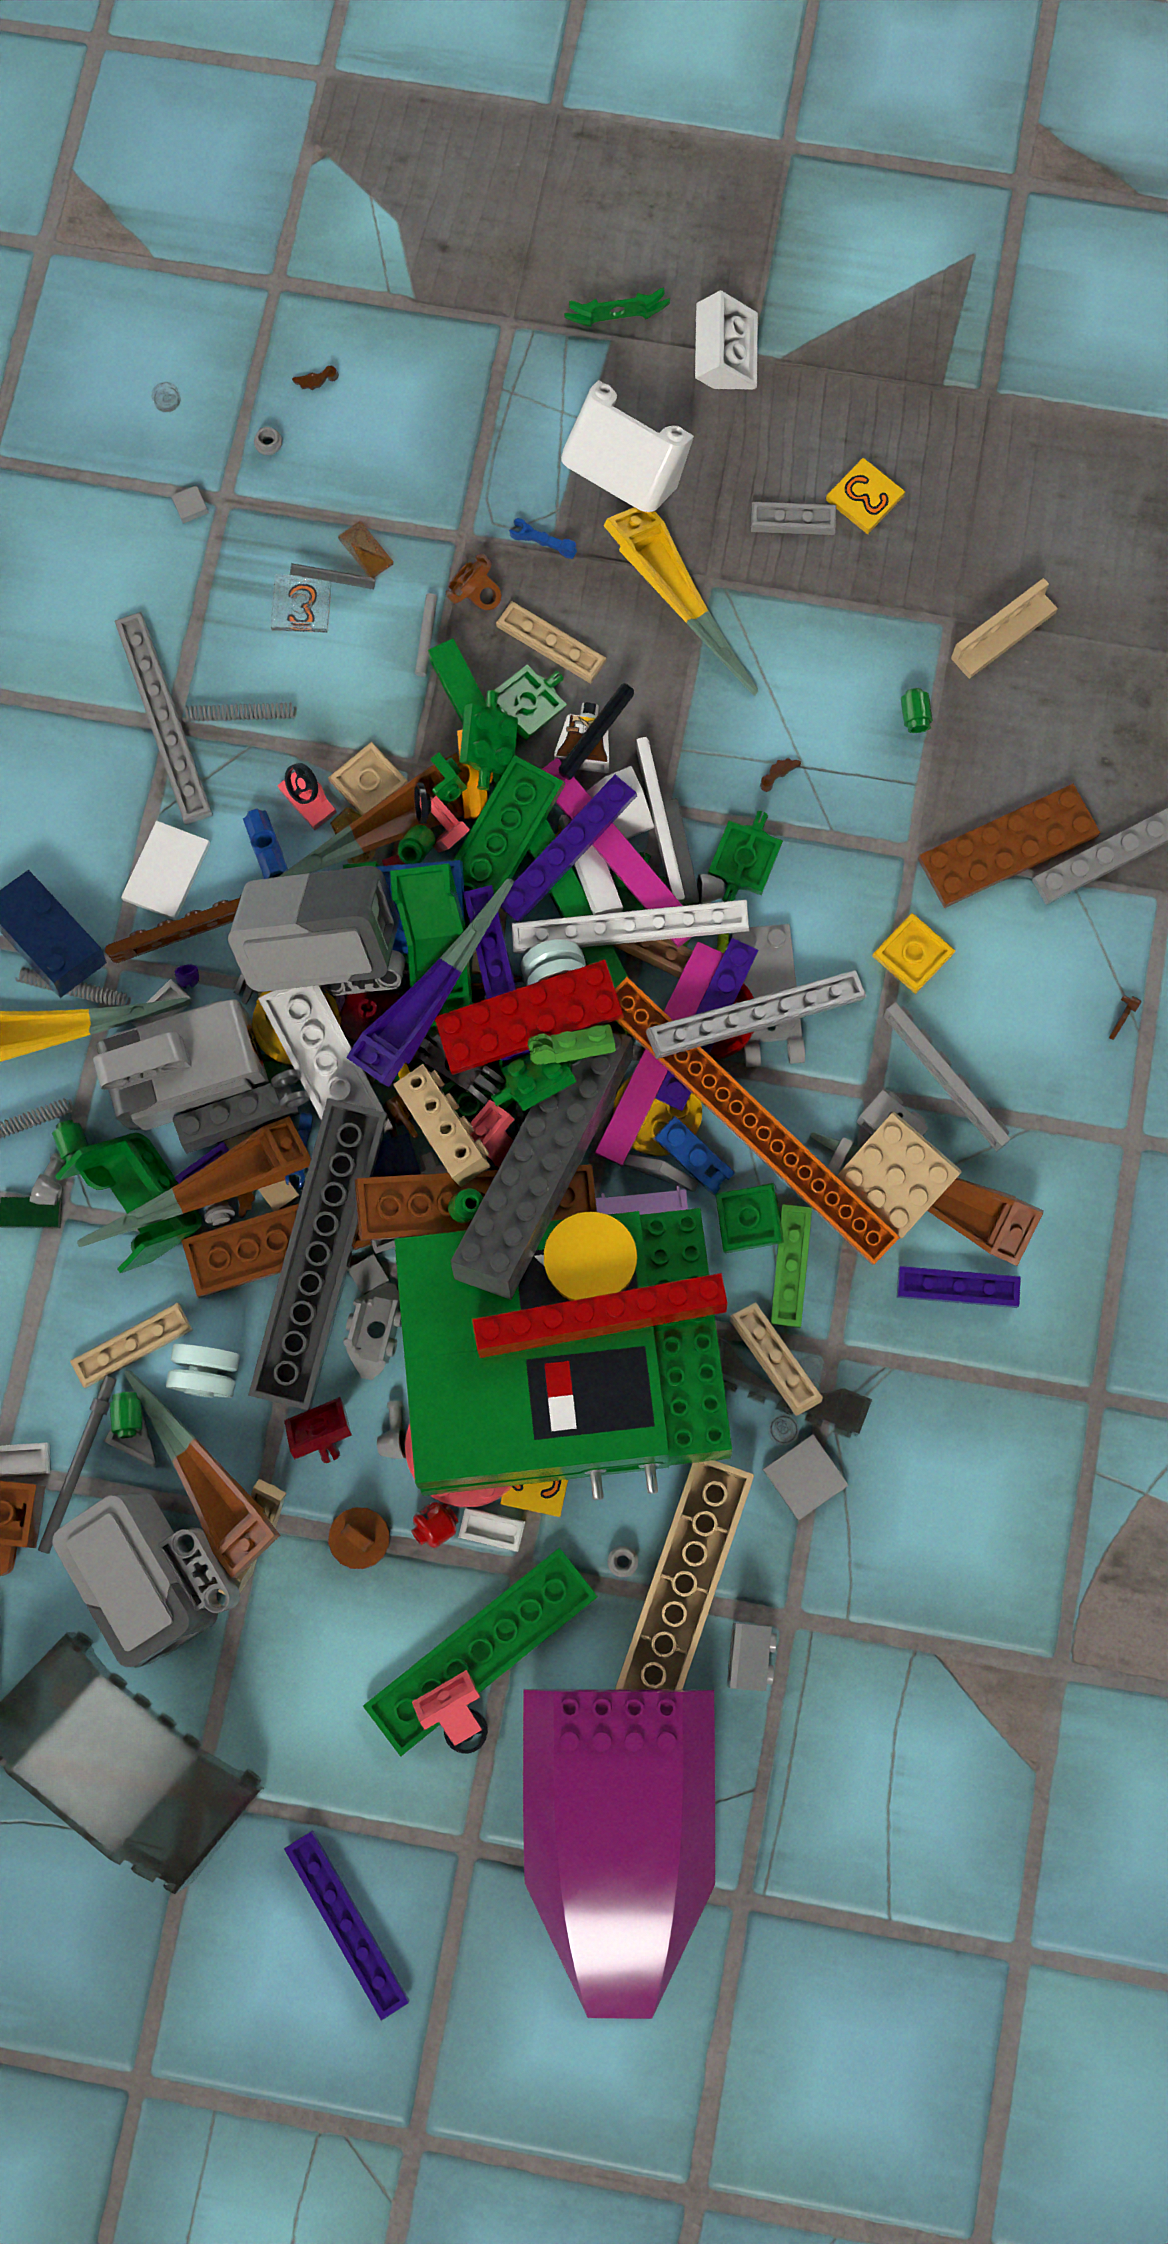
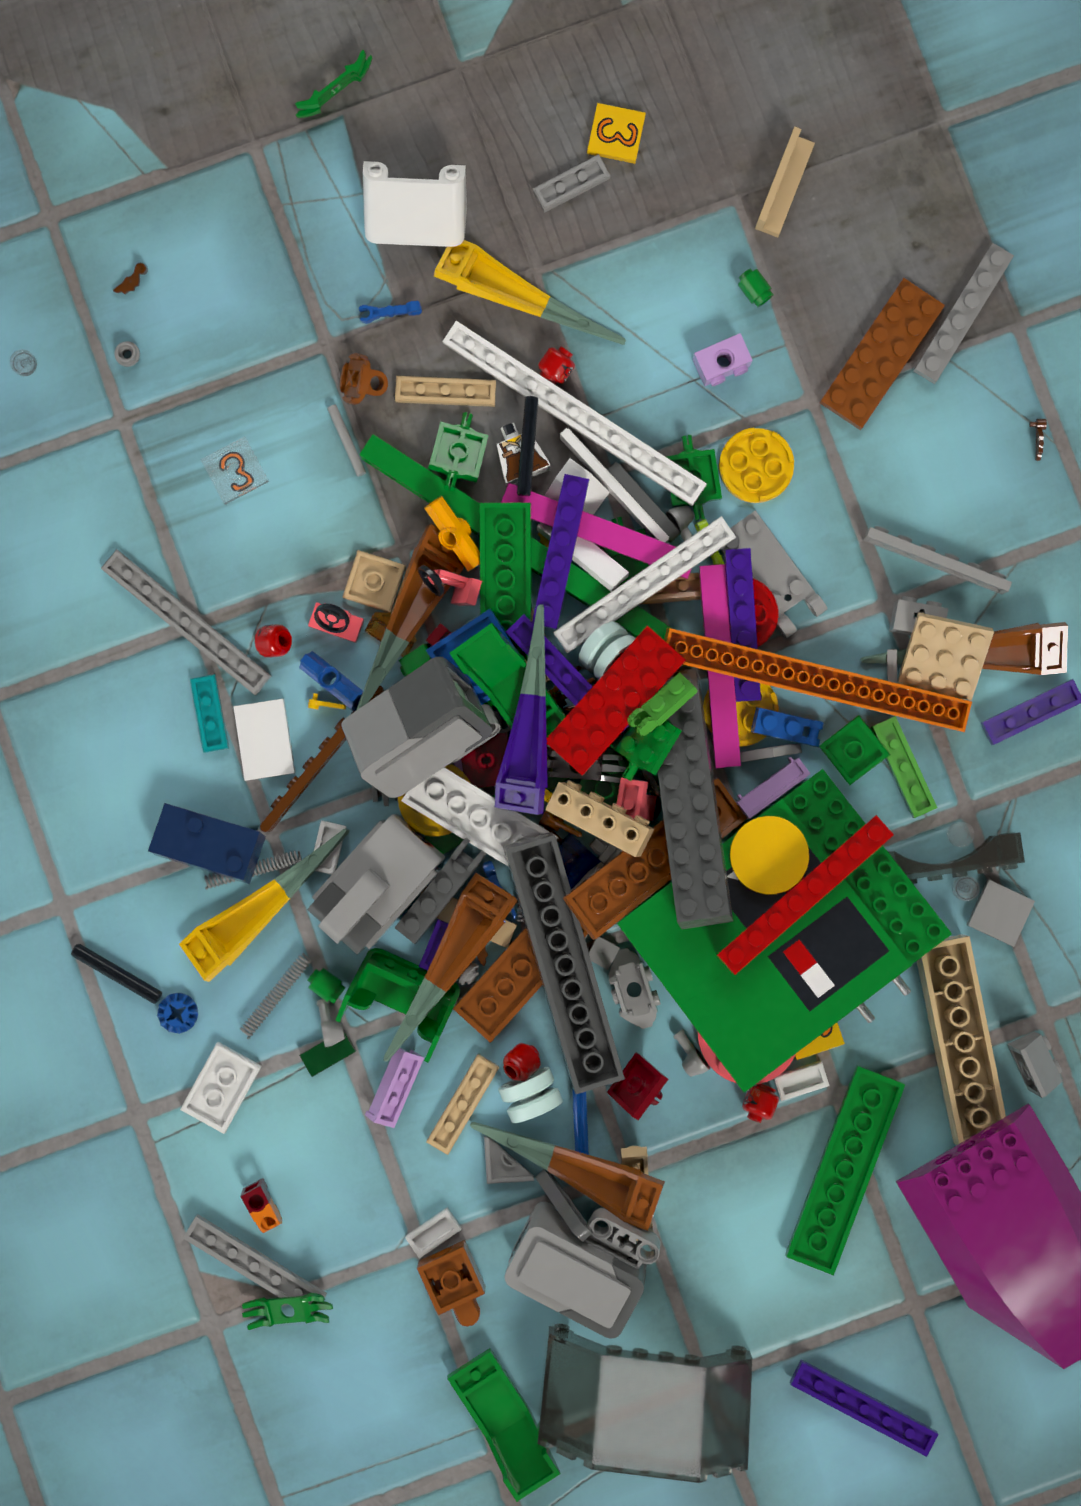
camera: 30 degrees left, 10 degrees up
(73, 1284) = (395, 1087): none -> lavender container
(99, 1408) = (468, 1162): dark grey bar -> none
(125, 1414) = (493, 1158): green brick -> none
(129, 815) = (209, 713): none -> teal tile
(164, 1501) = (564, 1205): none -> dark grey beam
(187, 975) = (328, 807): dark purple hinge -> none
(189, 504) = (98, 440): light grey tile -> none
(216, 1332) = (521, 1062): none -> red head
(233, 778) = (273, 640): none -> red head
(236, 863) = (314, 703): none -> yellow piece
(240, 1432) = (580, 1122): none -> blue axle
(246, 716) = (276, 566): light grey piece -> none
(332, 576) = (247, 436): dark grey bar -> none
(359, 1538) = (711, 1142): dark orange tile -> none
(365, 550) = (257, 398): clear orange slope -> none
(416, 844) = (446, 614): green brick -> none
(449, 1707) = (849, 1223): coral piece -> none
(452, 785) = (448, 552): green bracket -> none
(458, 1209) = (655, 869): green brick -> none
(488, 739) = (453, 502): green plate -> none
(633, 1561) = (914, 1050): light grey plate -> none
(665, 732) = (575, 413): none -> white plate
(673, 675) = (556, 365): none -> red head
(726, 343) = (436, 67): white slope -> none
(755, 1014) = (775, 598): light grey tile -> none
(776, 1359) = (935, 842): tan tile -> none
(777, 770) = (676, 394): reddish brown piece -> none
(817, 882) = (756, 465): none -> yellow tile
(856, 753) = (732, 349): none -> lavender brick
(913, 953) = (858, 479): yellow tile -> none

